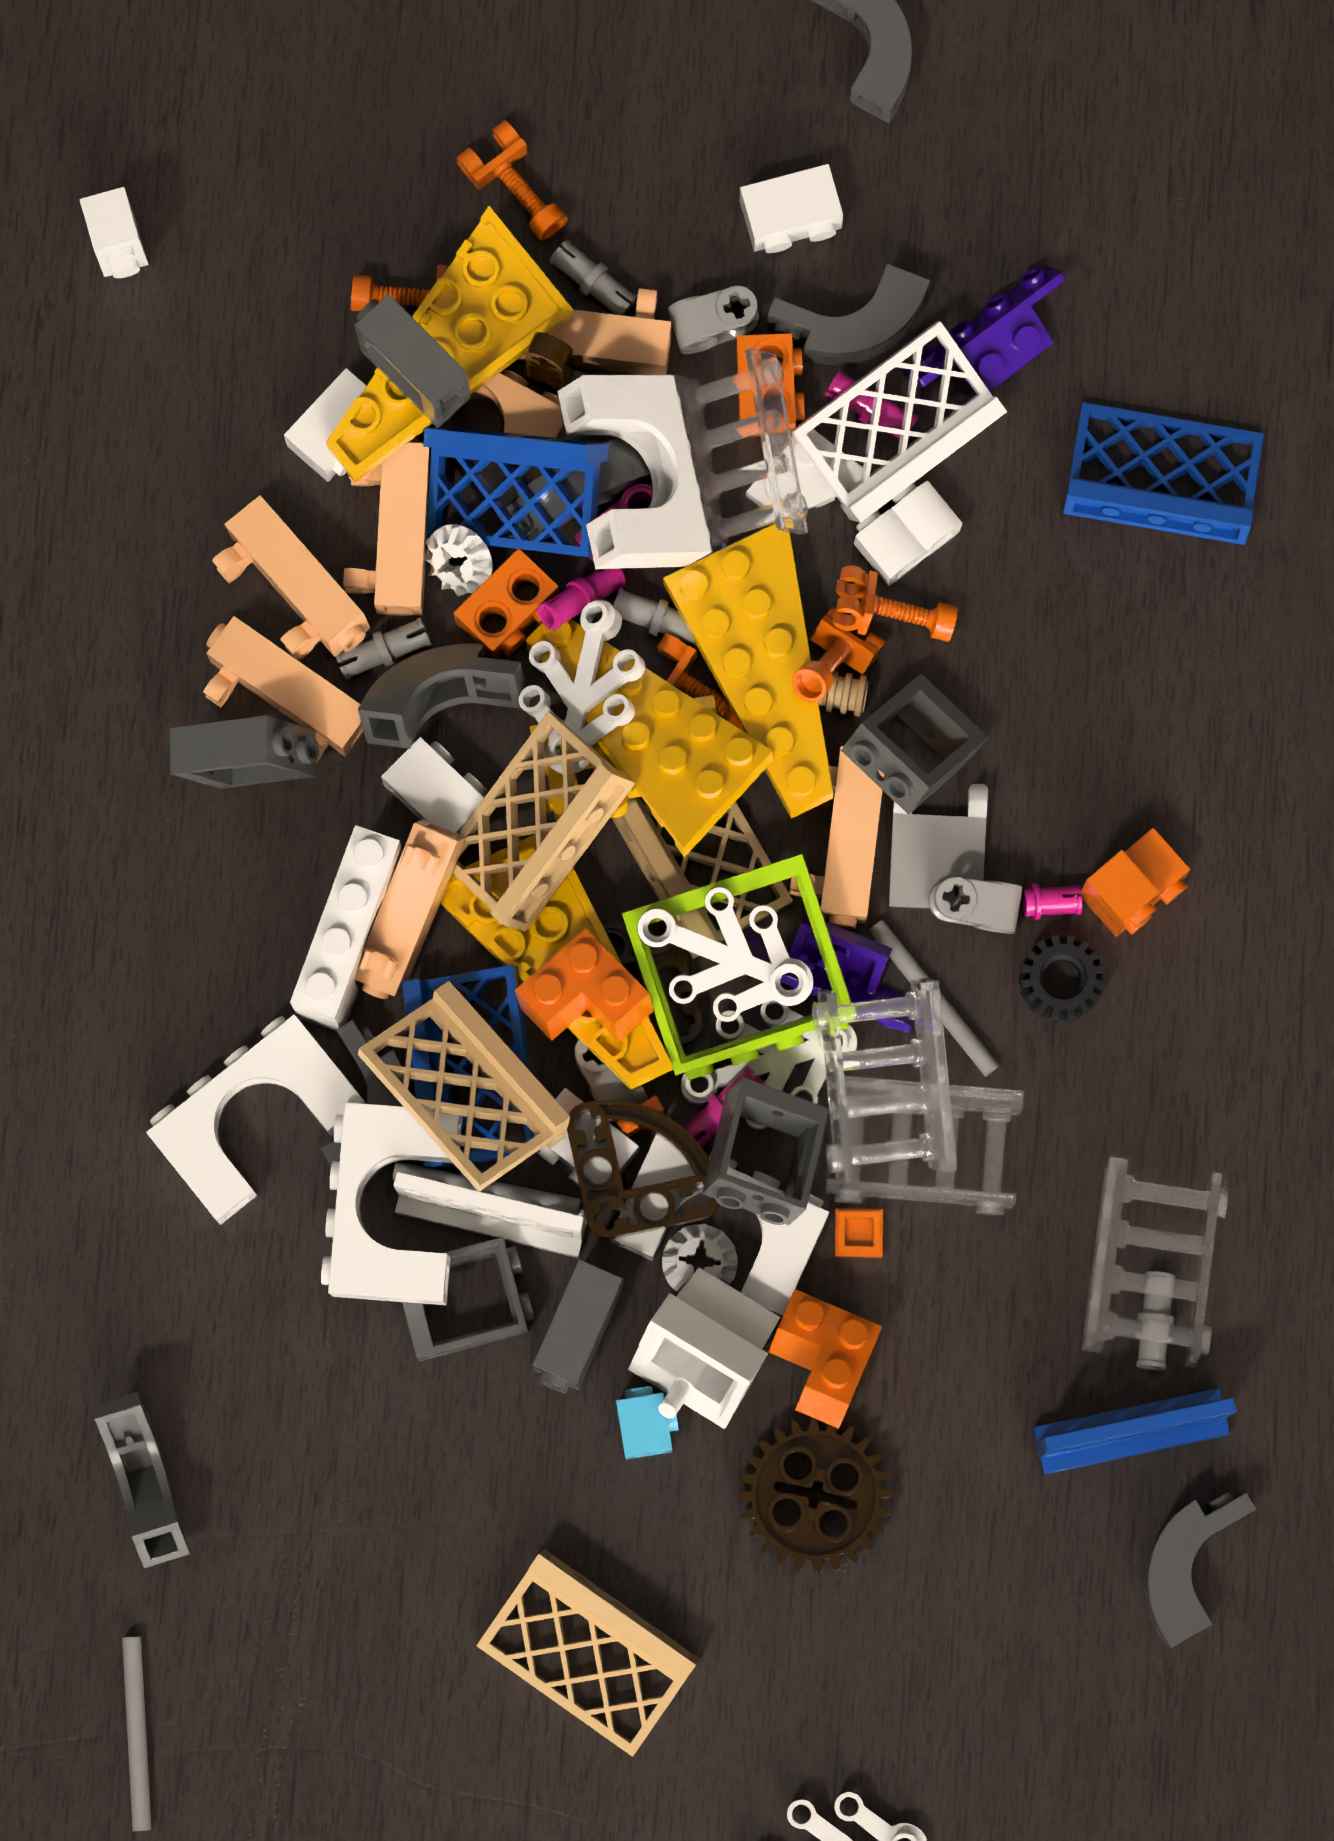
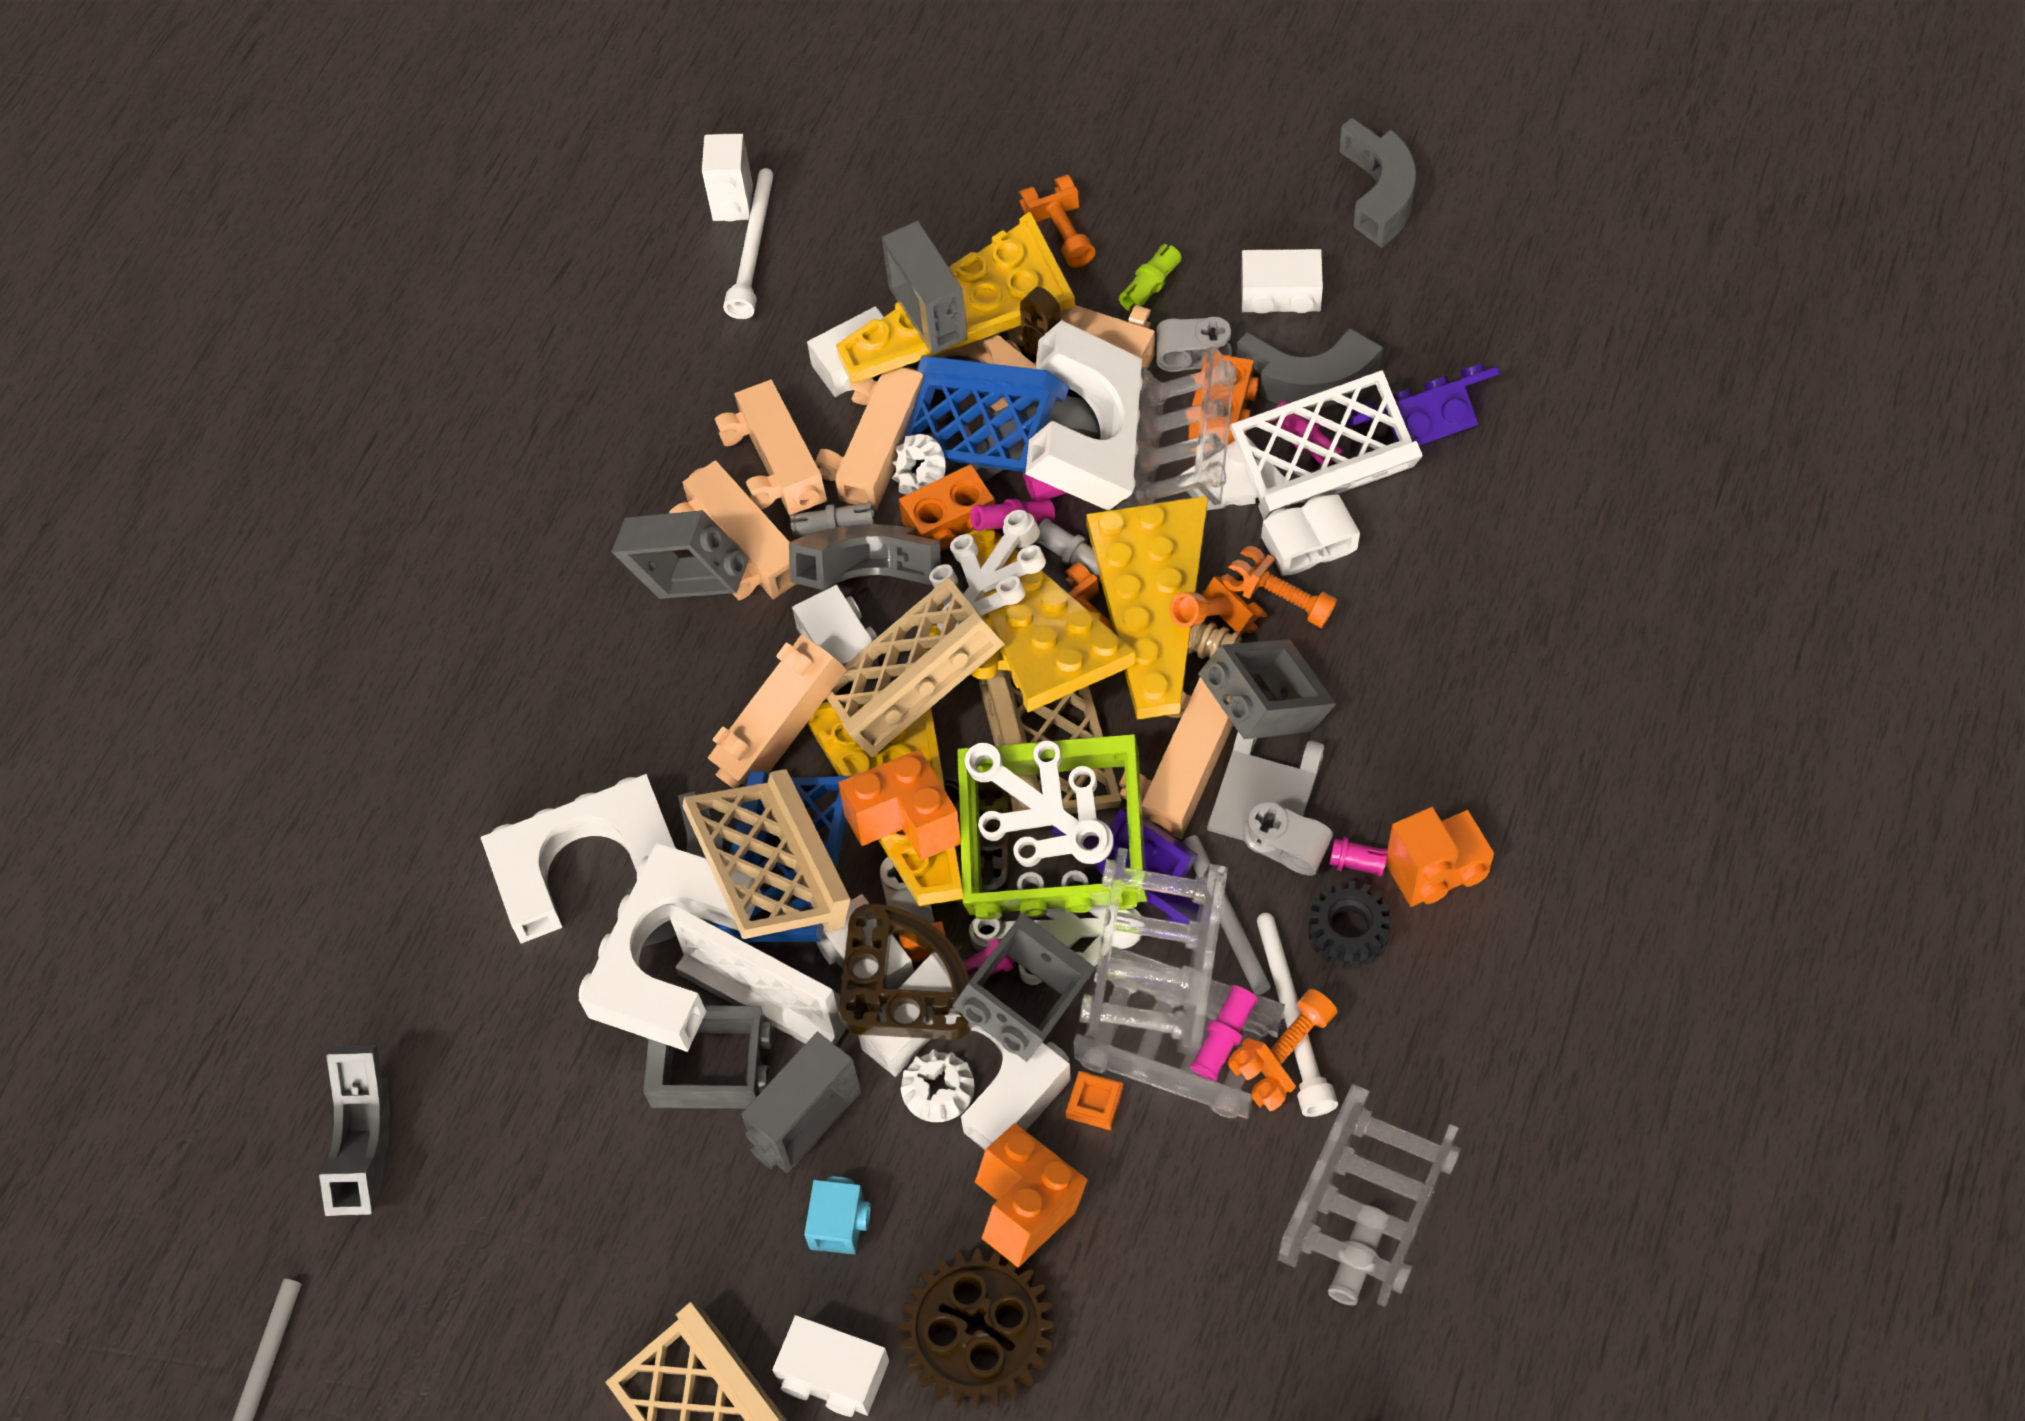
camera: 20 degrees right, 20 degrees down
(179, 384) = (740, 298): none -> white piece
(327, 979) = (680, 739): white arch -> none
(593, 278) = (1100, 295): light grey pin -> none
(641, 239) = (1150, 277): none -> lime pin
(688, 1572) = (830, 1367): none -> white brick
(704, 1348) = (909, 1149): white piece -> none
(973, 1140) = (1224, 1033): none -> dark pink pin
(1051, 1087) = (1257, 1057): none -> orange bar
(1072, 1166) = (1315, 1094): none -> white piece
(1133, 1430) = (1310, 1351): blue fence -> none
(1156, 509) = (1539, 563): blue fence -> none

